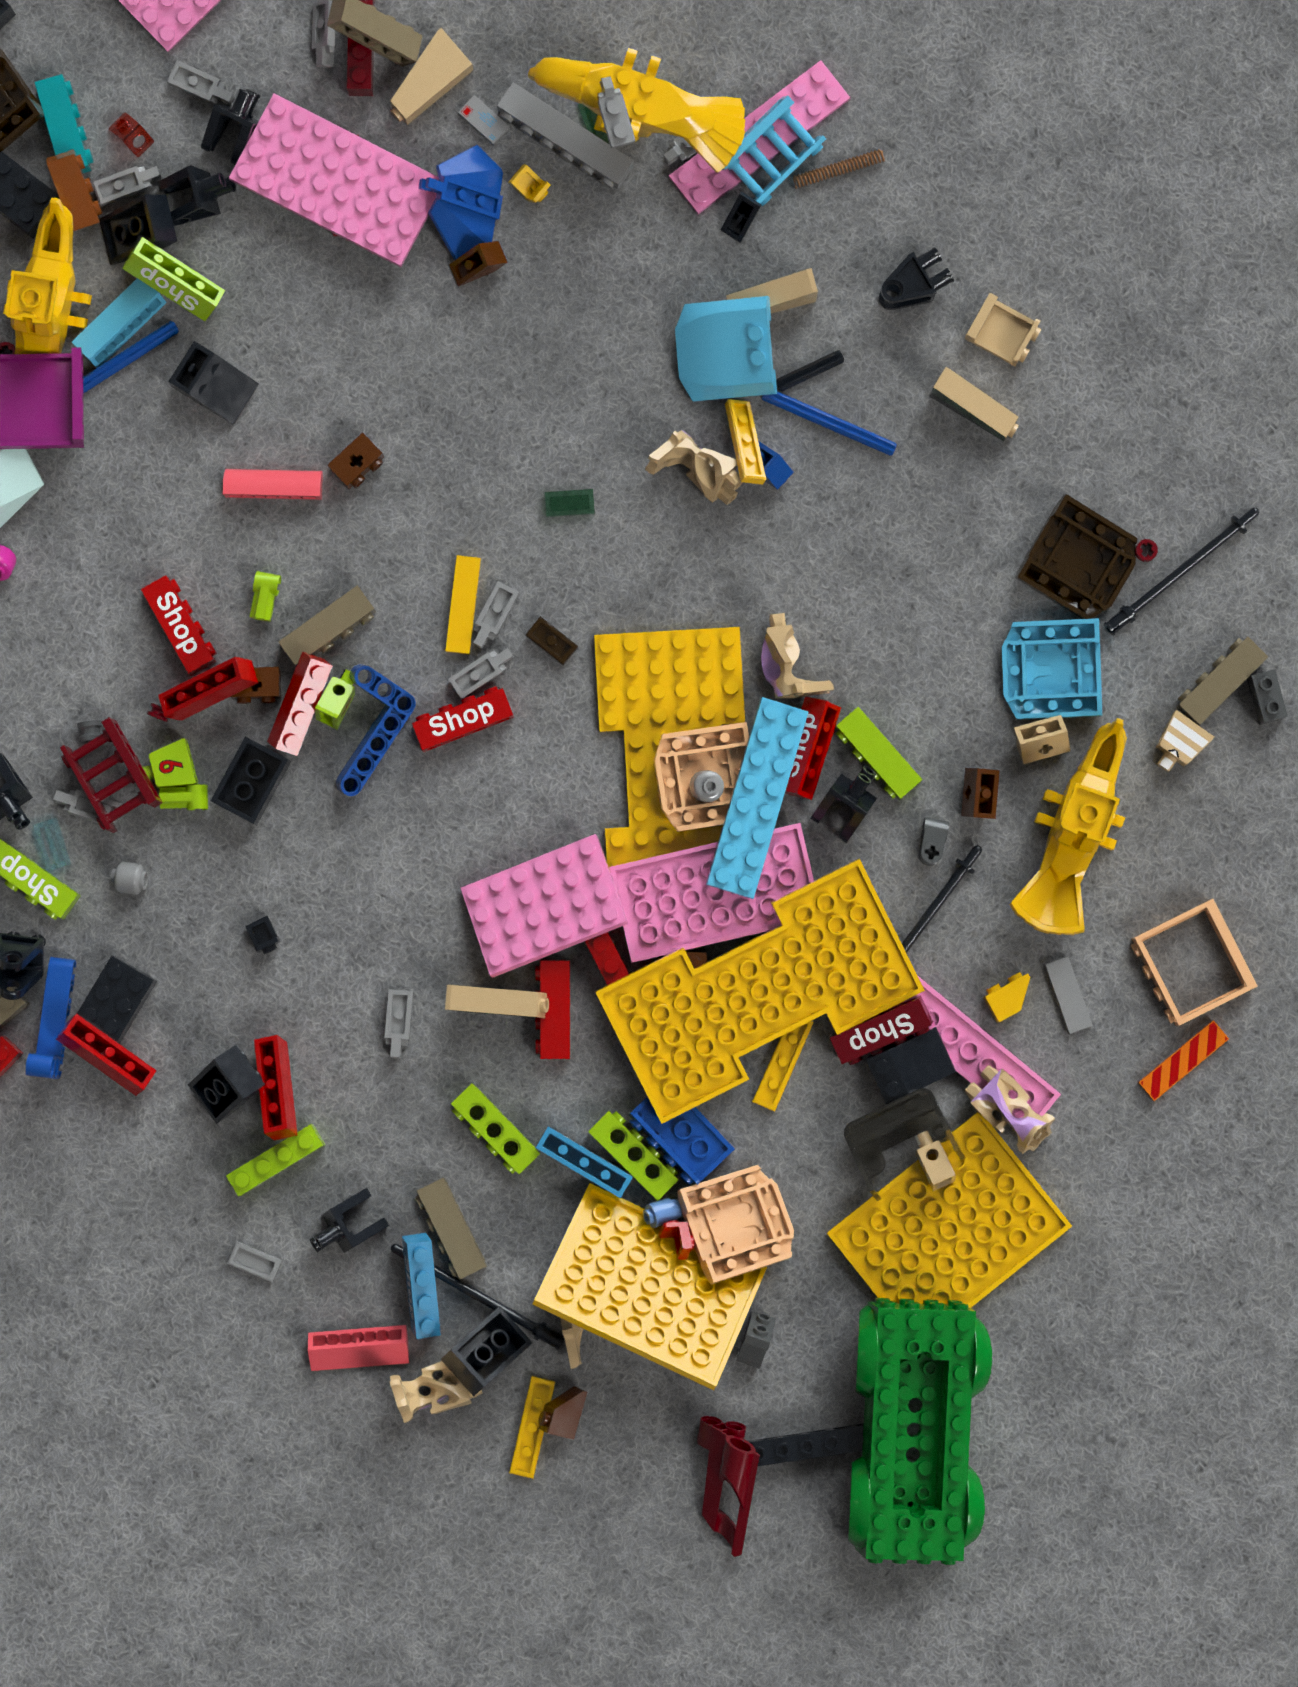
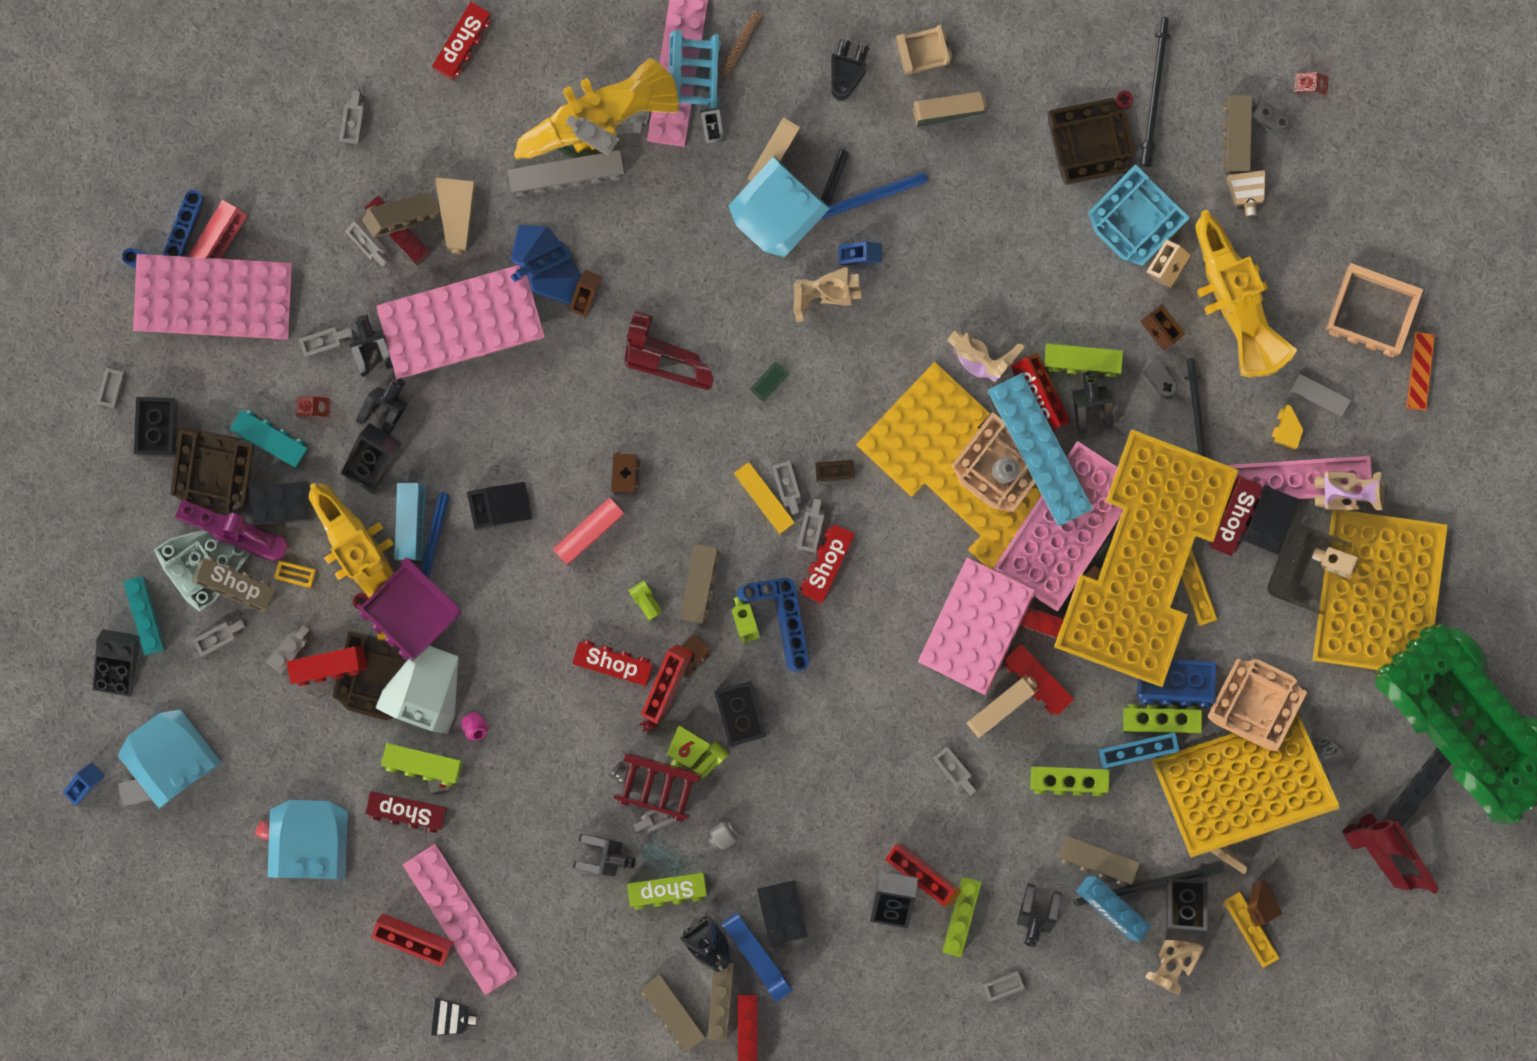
camera: 40 degrees left, 0 degrees up
(74, 188) = (312, 468): dark orange brick -> none
(106, 1054) = (808, 948): red brick -> none
(125, 184) = (337, 439): light grey hinge -> none
(173, 279) = (420, 467): lime brick -> none
(263, 935) = (831, 795): black bracket -> none
(299, 703) = (726, 642): brick -> none
(358, 1348) = (1110, 978): coral brick -> none
(482, 367) = (645, 353): none -> dark red panel
(484, 120) = (509, 207): light grey tile -> none
(529, 184) = (572, 220): yellow bracket -> none
(661, 1212) = (1209, 737): medium blue brick -> none
(682, 1239) = (1234, 740): red bracket -> none
(745, 441) = (838, 252): yellow tile -> none

